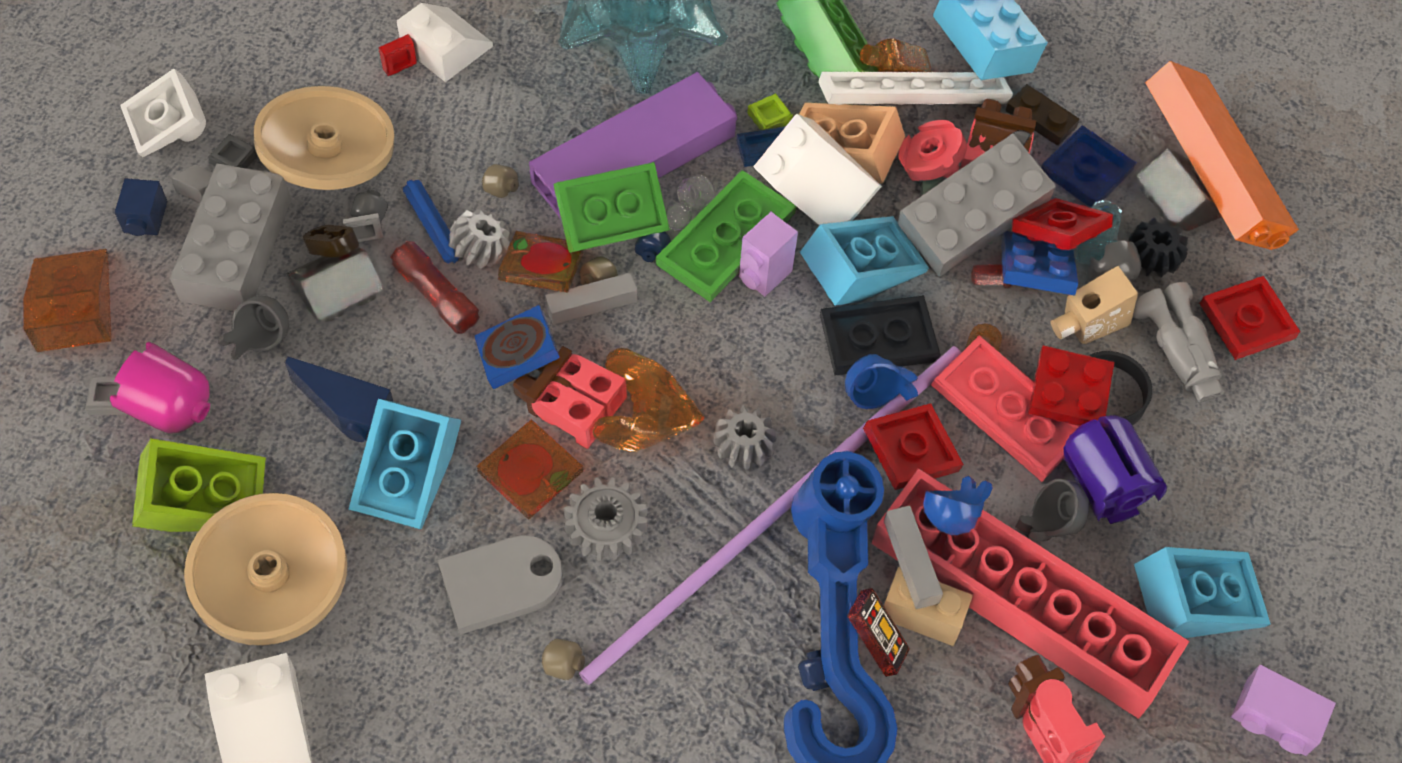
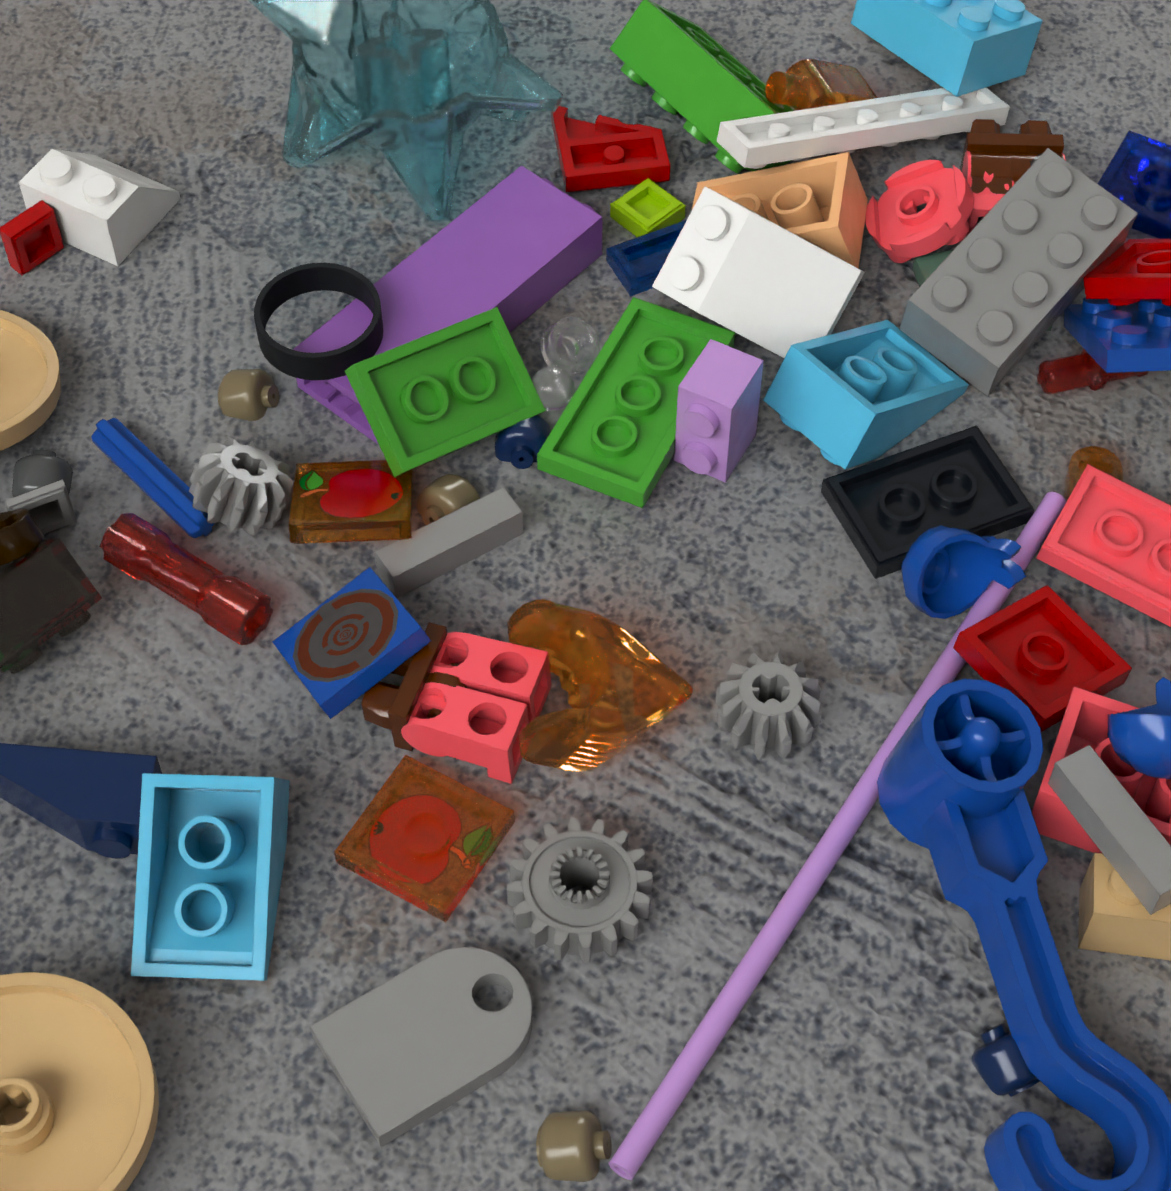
camera: 10 degrees left, 5 degrees down
(541, 120) = (317, 278): none -> black tyre
(756, 71) = (608, 152): none -> red wing
(878, 632) = (1096, 969): tile -> none
(1051, 119) = (1084, 134): dark brown plate -> none

